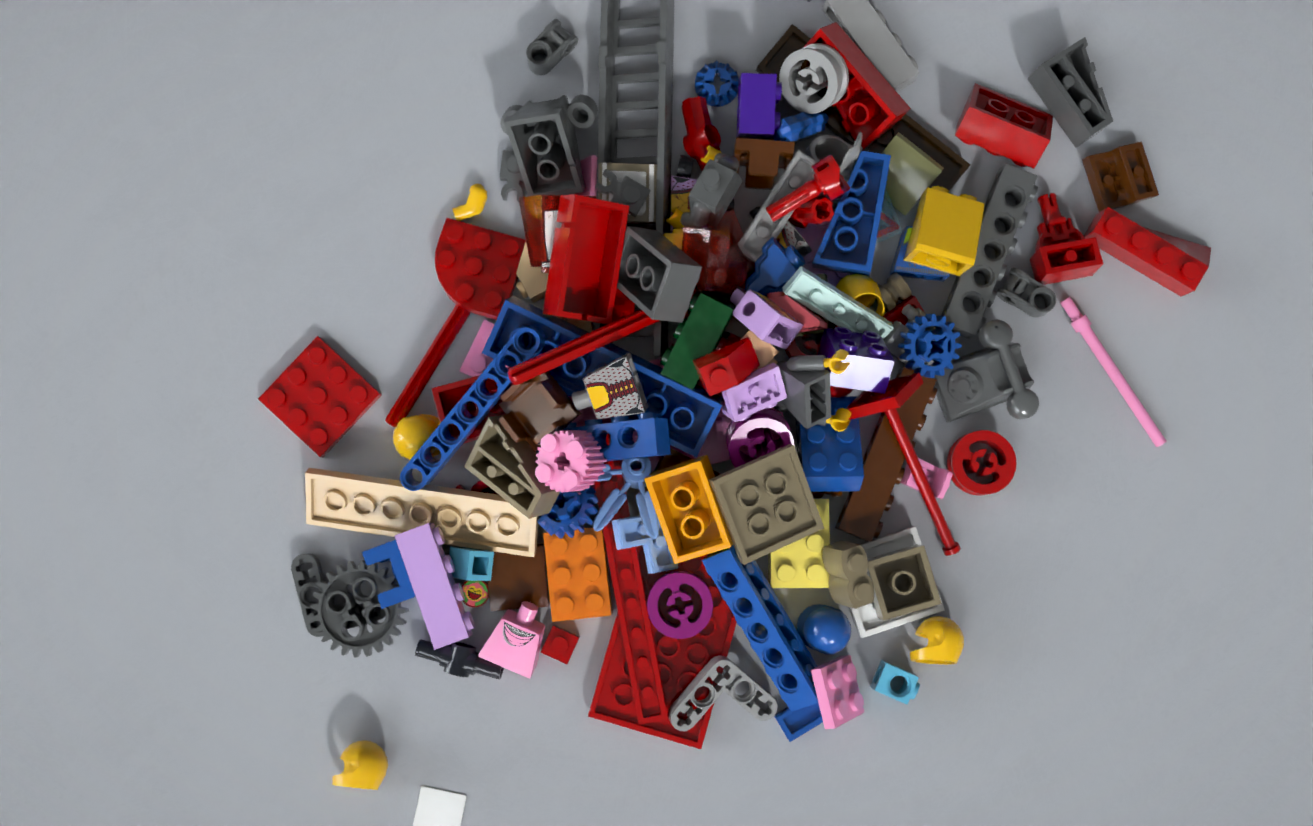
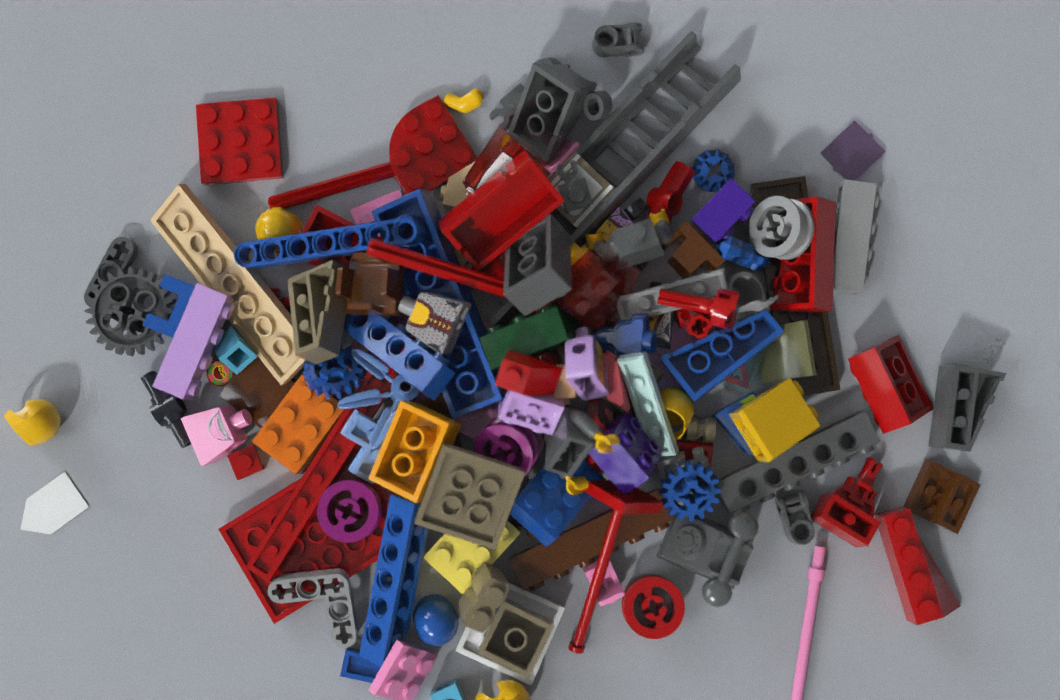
camera: 45 degrees right, 0 degrees up
(569, 461) = (359, 341): bright pink brick -> none

